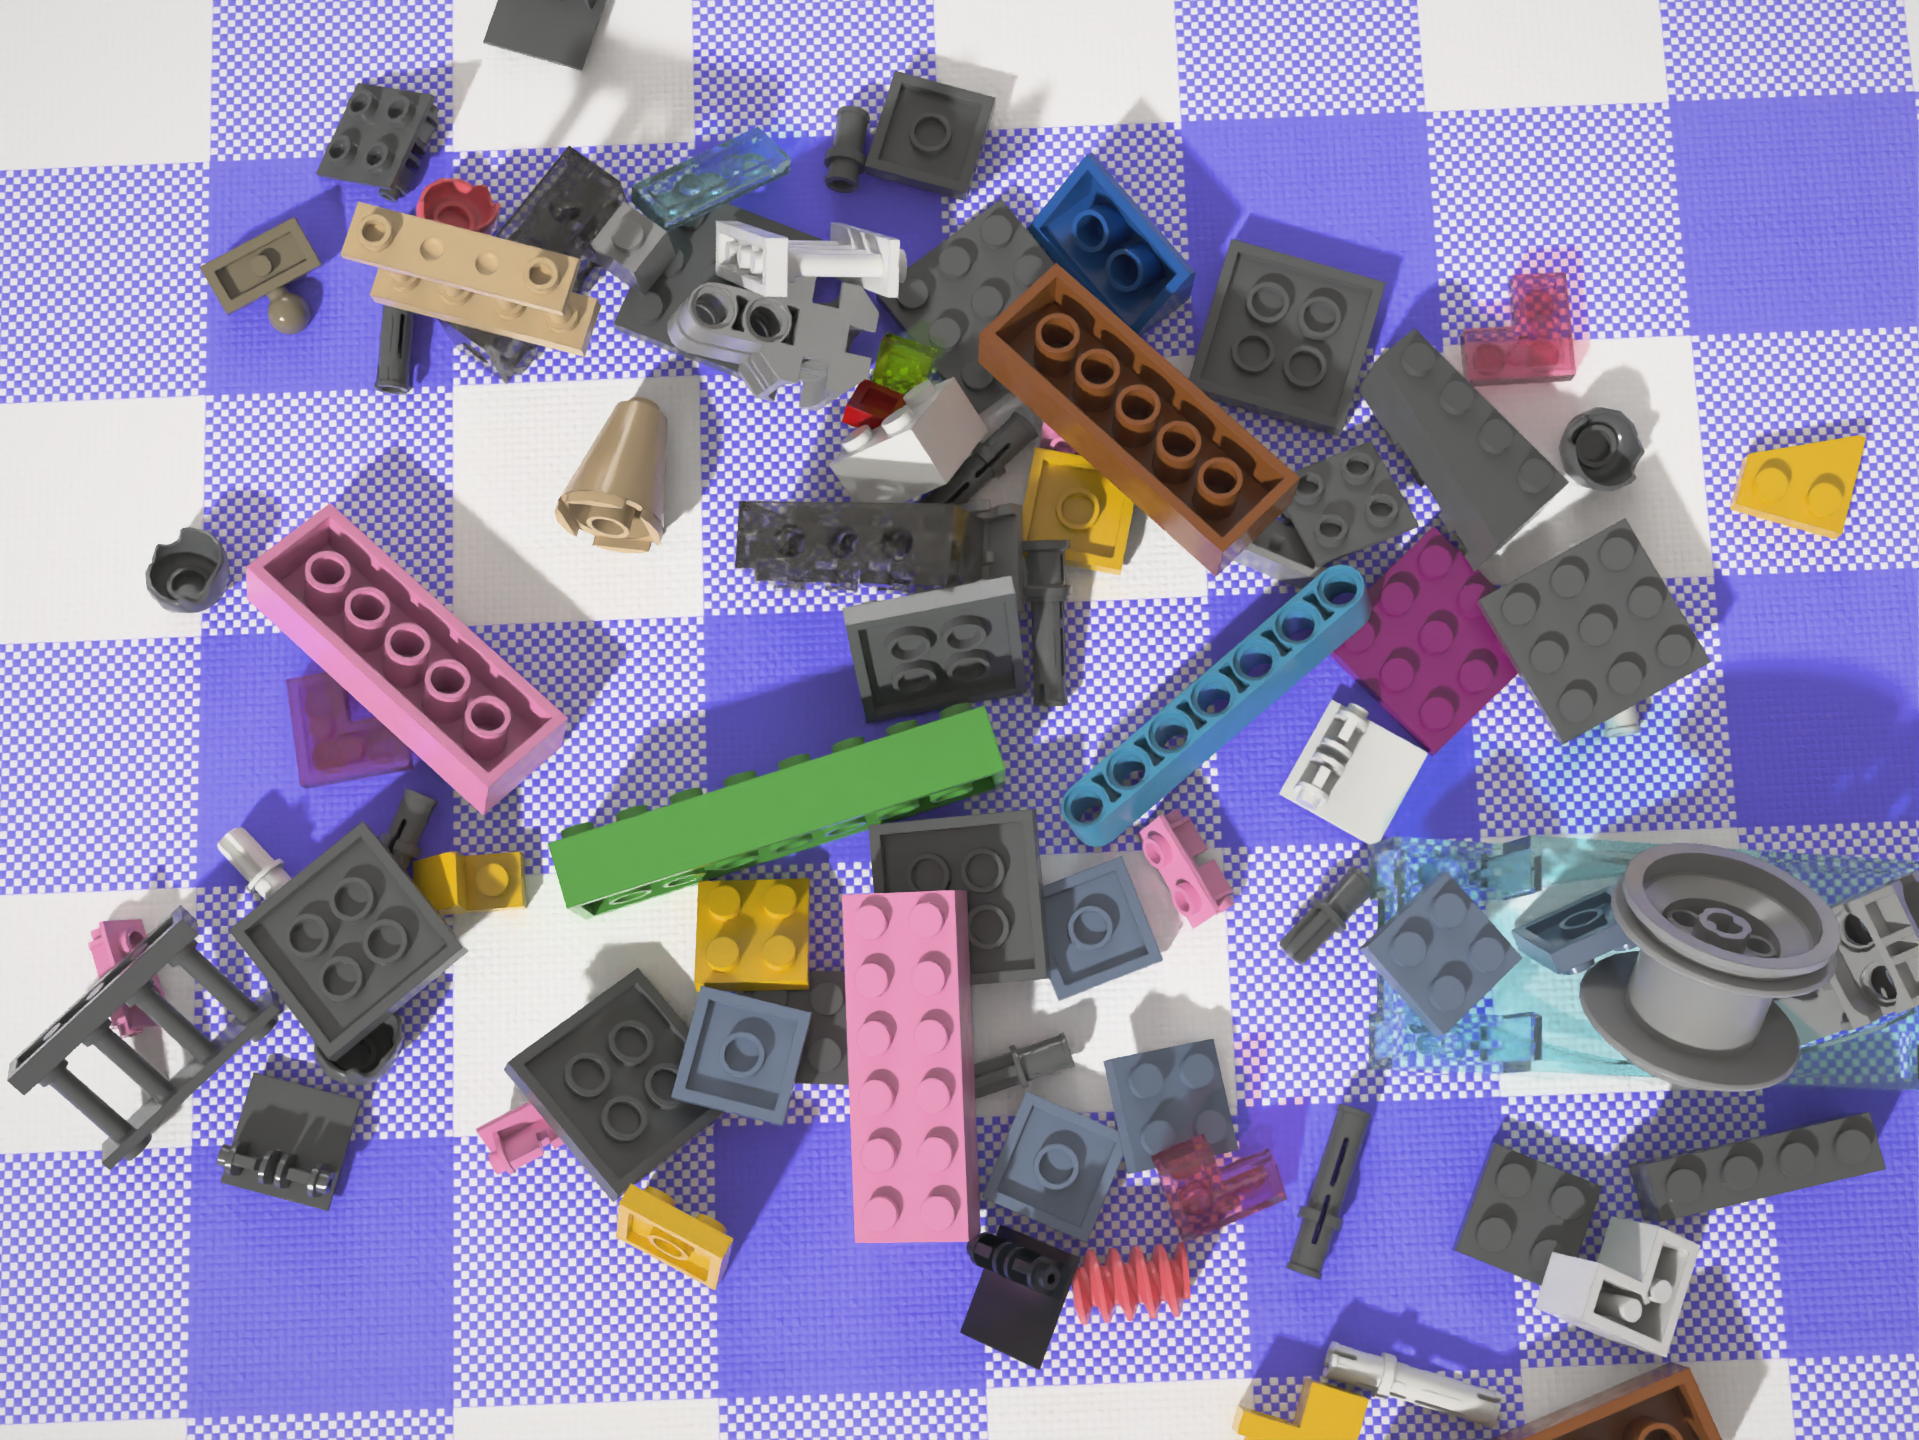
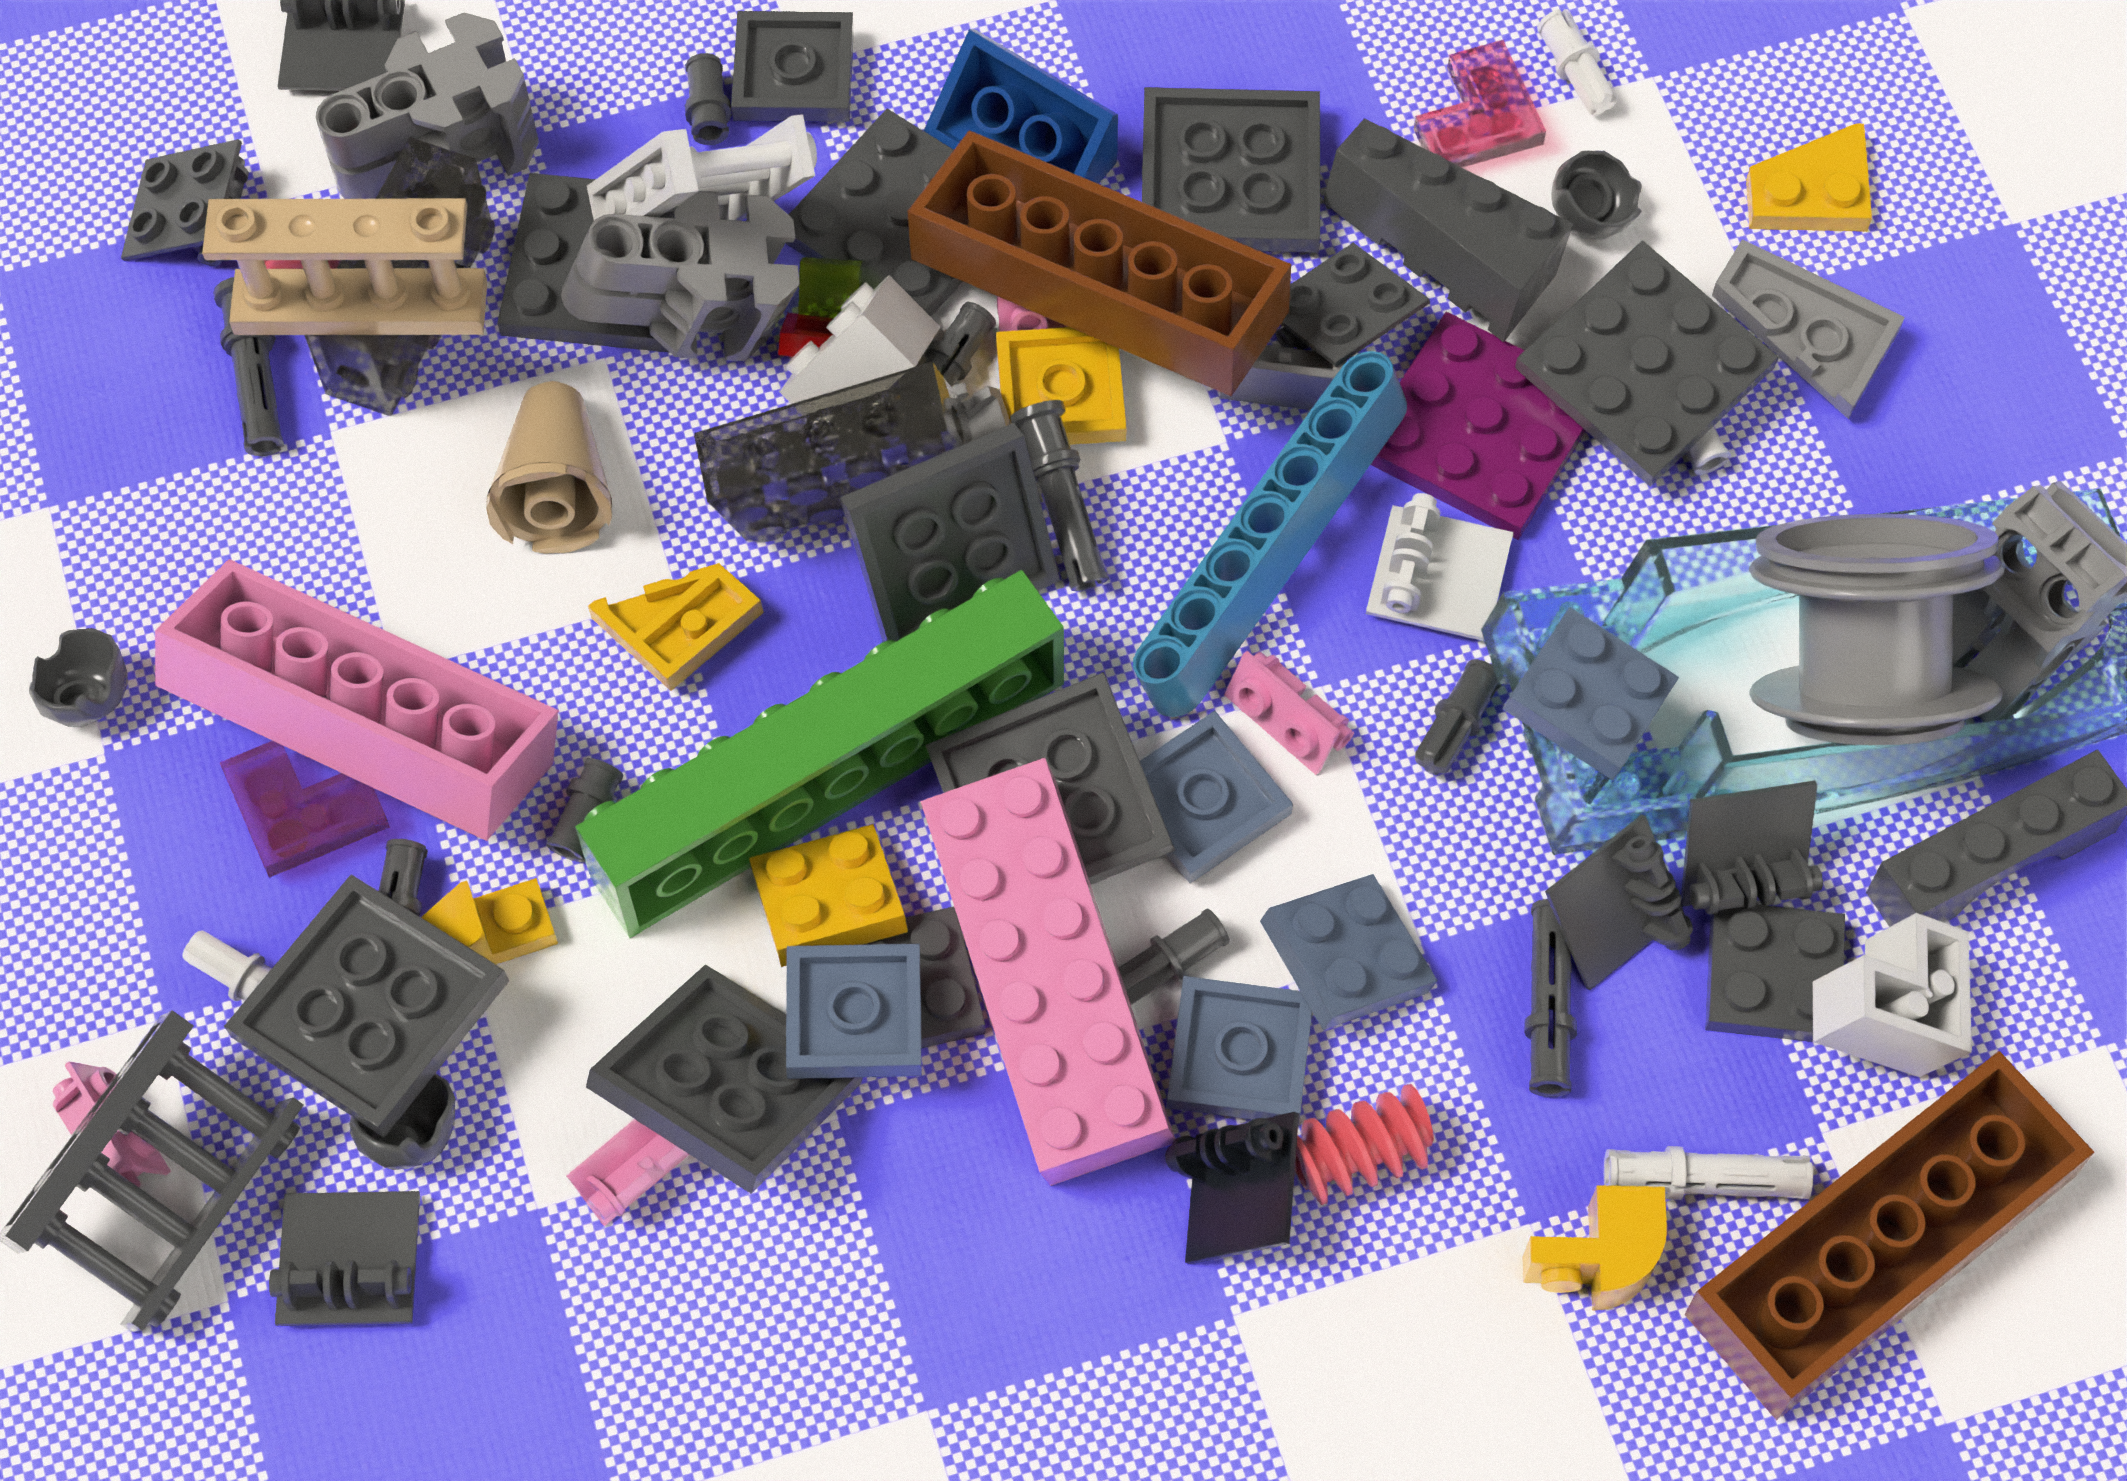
camera: 20 degrees left, 15 degrees down
(264, 269) = (89, 358): dark tan plate -> none
(575, 799) = (588, 791): none -> dark grey pin
(600, 111) = (450, 97): none -> light grey connector
(633, 248) = (504, 232): light grey brick -> none
(661, 1230) = (829, 1224): yellow plate -> none
(696, 647) = (679, 621): none -> yellow wing
(710, 179) = (567, 153): clear light blue plate -> none
(1209, 1197) = (1418, 1030): clear pink plate -> none
(1411, 1130) = (1619, 903): none -> dark grey hinge
(1536, 1117) = (1750, 848): none -> dark grey hinge
(1573, 934) = (1735, 655): sand blue plate -> none
(1626, 307) = (1576, 60): none -> white axle
(1753, 622) = (1809, 322): none -> light grey wing

